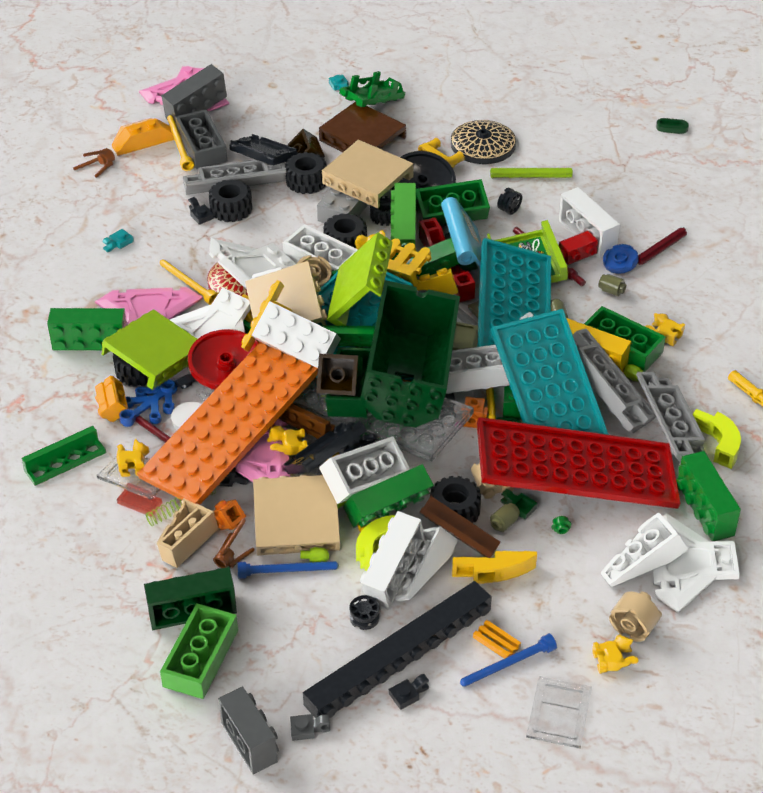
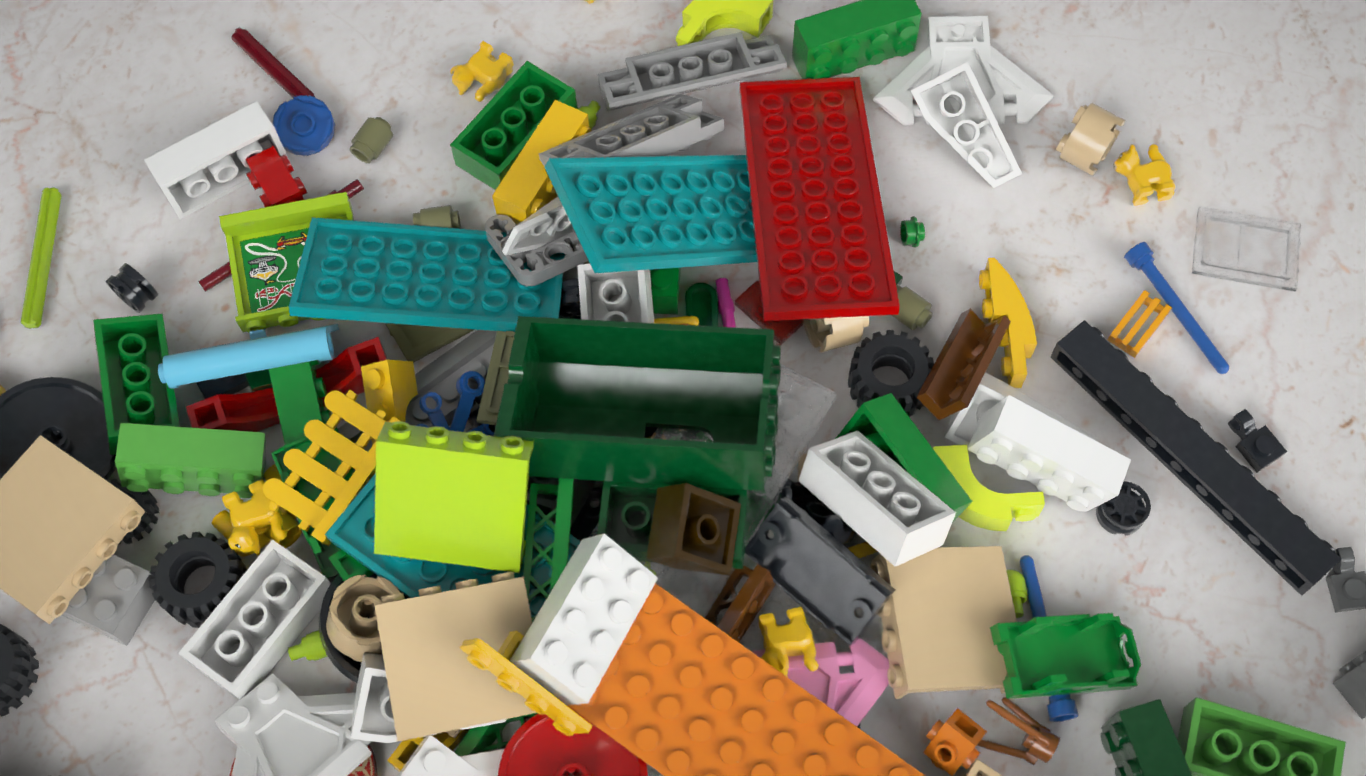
camera: 90 degrees left, 20 degrees up
(269, 565) = (1066, 655): none -> green piece

